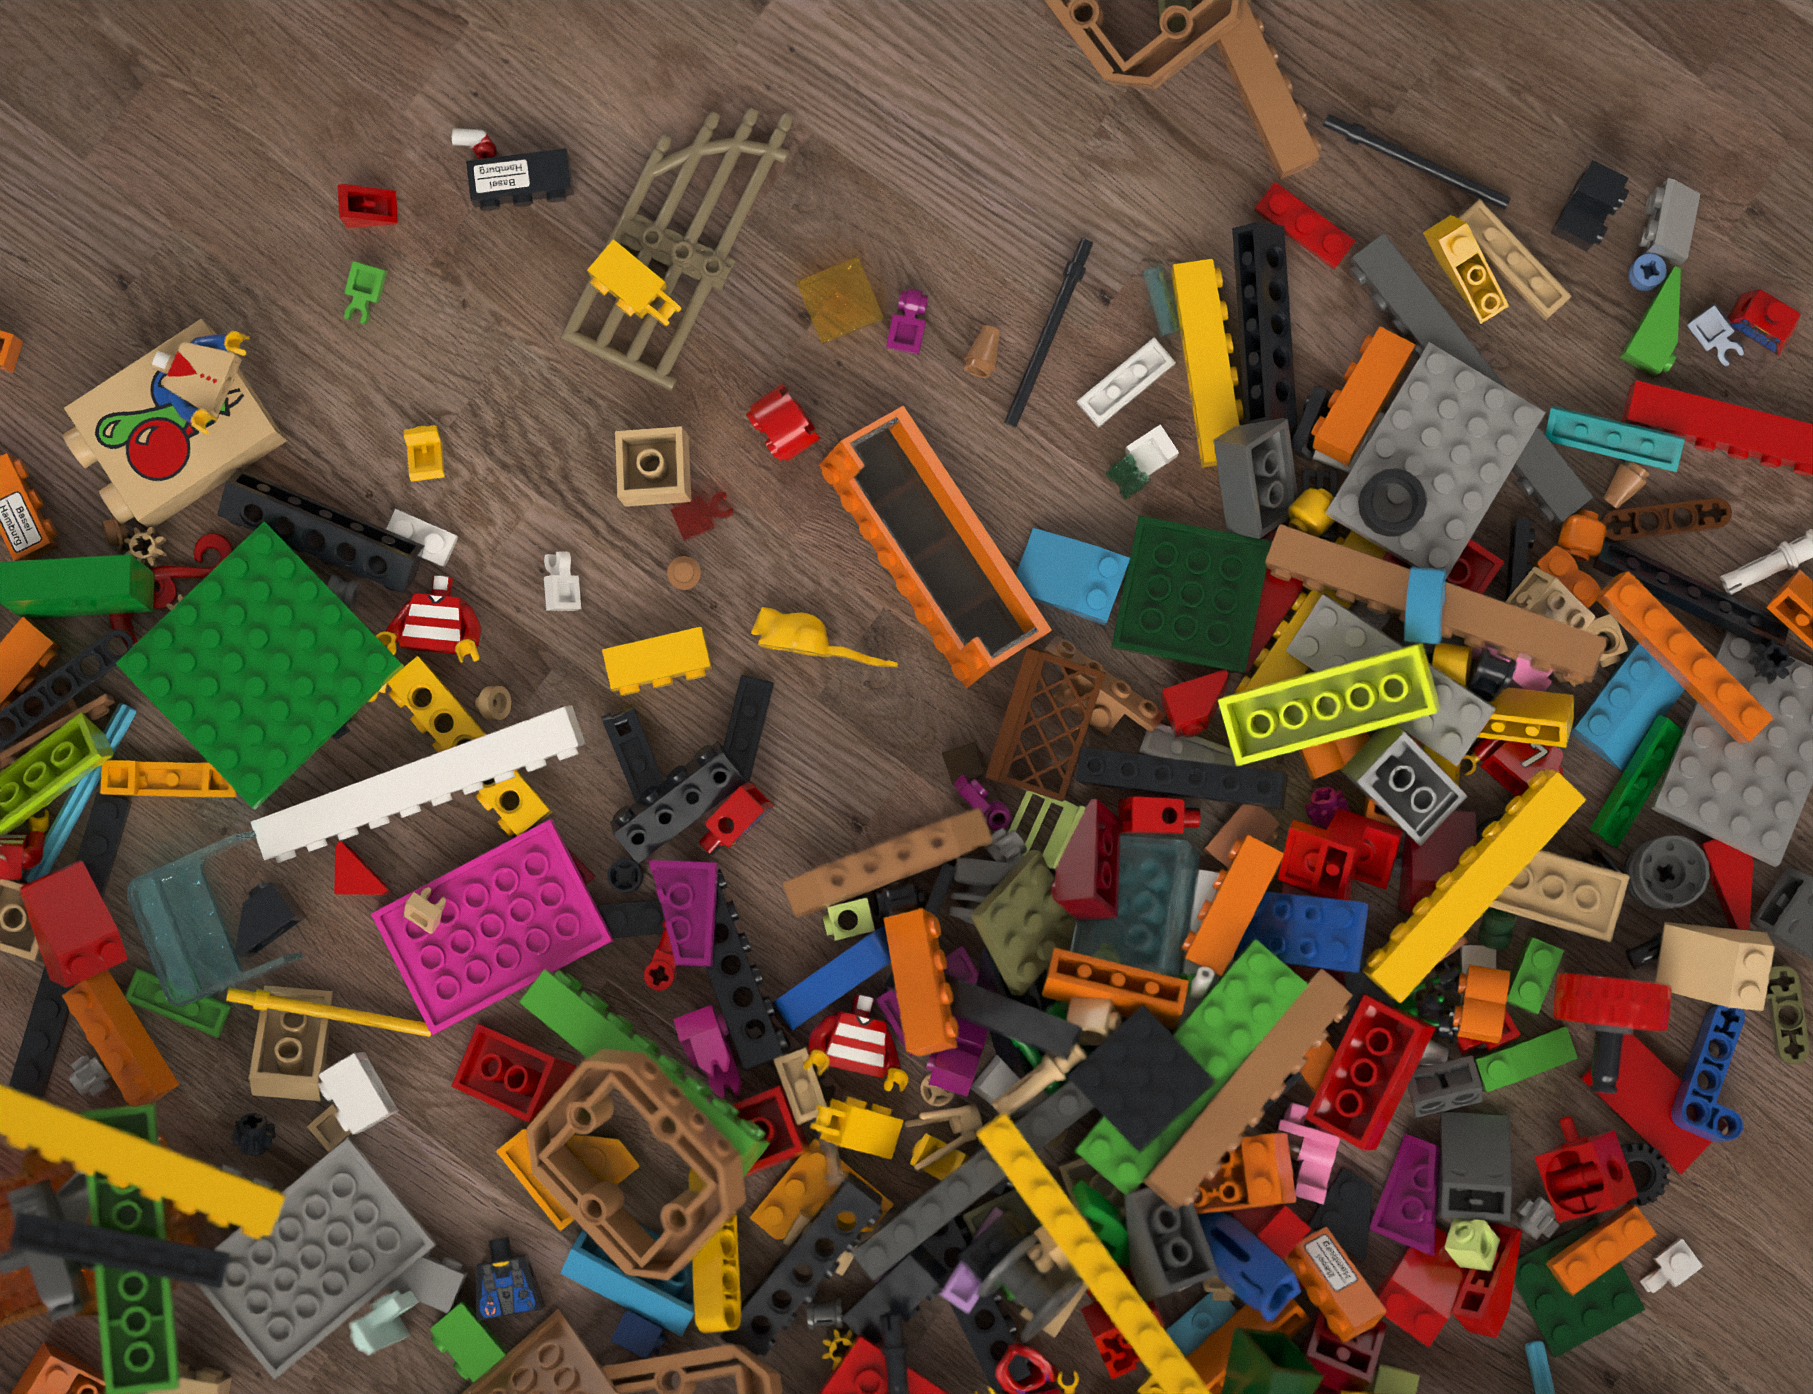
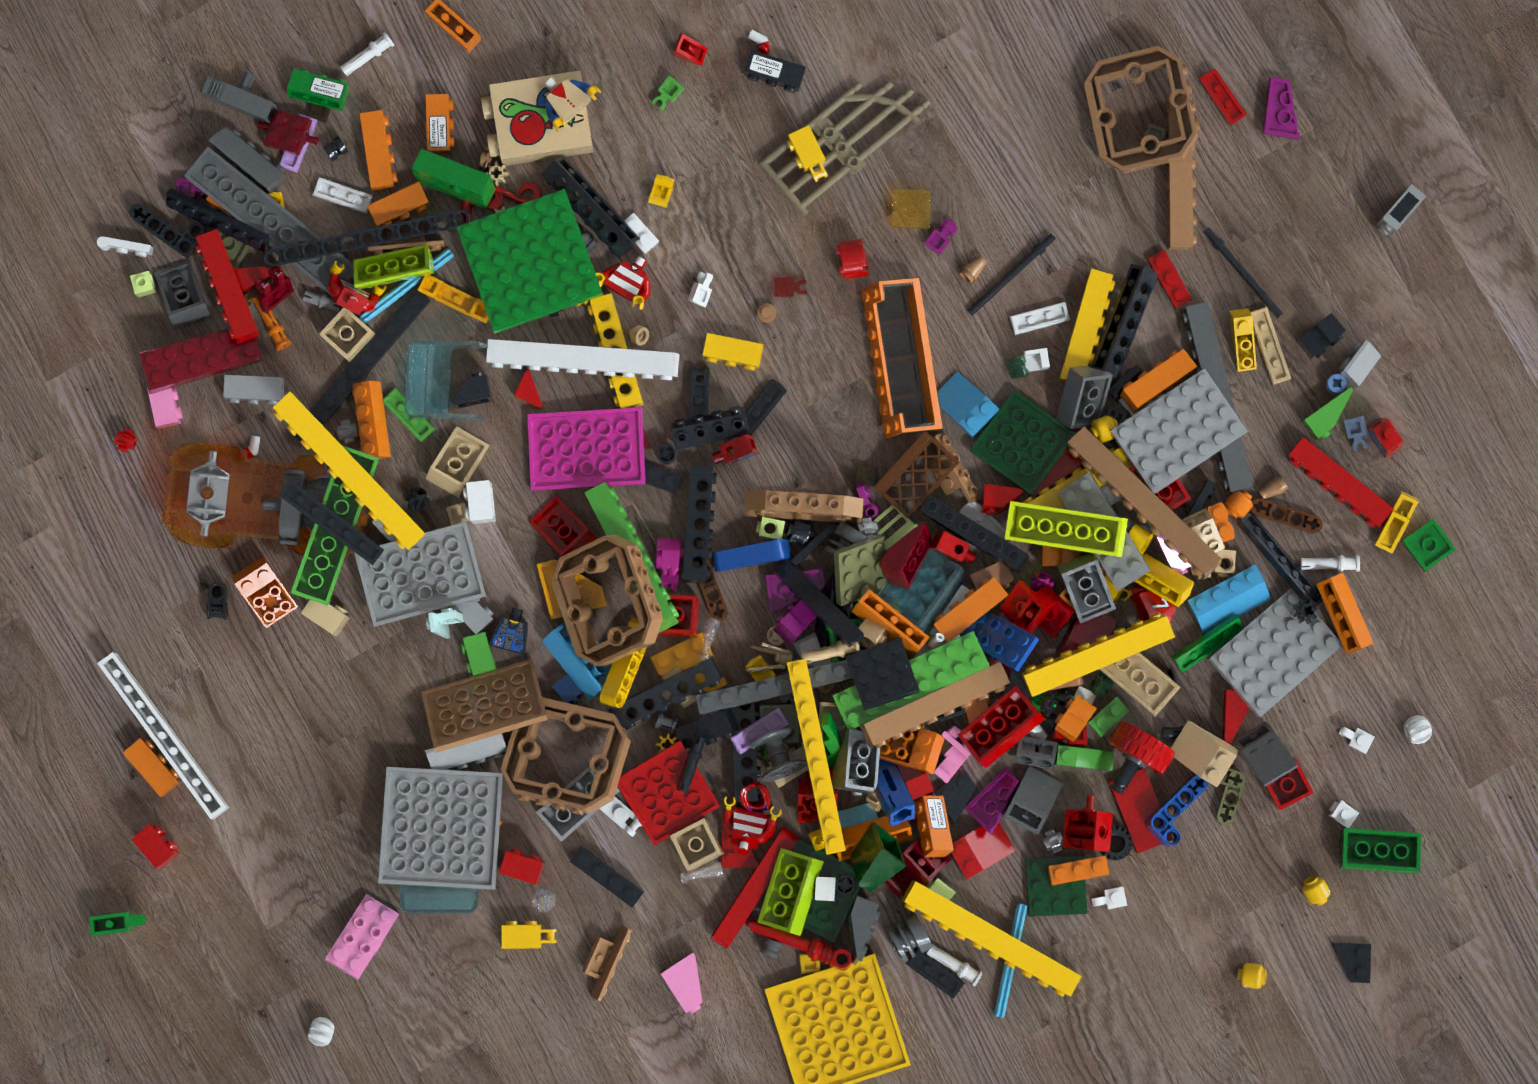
camera: 20 degrees right, 0 degrees up
(72, 925) = (374, 350): red slope -> none
(262, 1000) = (453, 433): yellow bar -> none
(423, 912) = (555, 424): tan tile -> none
(653, 466) = (776, 251): tan brick -> none
(662, 957) = (669, 504): red connector -> none
(689, 907) = (692, 484): magenta wing -> none
(800, 1085) = (707, 601): tan plate -> none
(804, 635) = (814, 373): yellow animal -> none
(856, 1045) = (745, 593): torso -> none
(858, 1127) = (725, 634): yellow brick -> none
(920, 982) = (792, 575): orange brick -> none
(993, 1245) = (768, 724): black plate -> none
(1048, 1252) = (795, 740): tan tile -> none
(1160, 301) = (1077, 284): clear light blue pin -> none
(1401, 478) = (1150, 427): black tyre -> none
(1424, 605) = (1137, 500): dark azure slope -> none
(1472, 1243) = (1013, 838): yellowish green brick -> none
(1488, 1293) = (1013, 862): red slope -> none
(1491, 675) = (1155, 552): black piece -> none
(1614, 438) = (1278, 461): teal plate -> none
(1684, 657) = (1259, 588): orange brick -> none
(1684, 870) = (1211, 697): dark grey wheel -> none

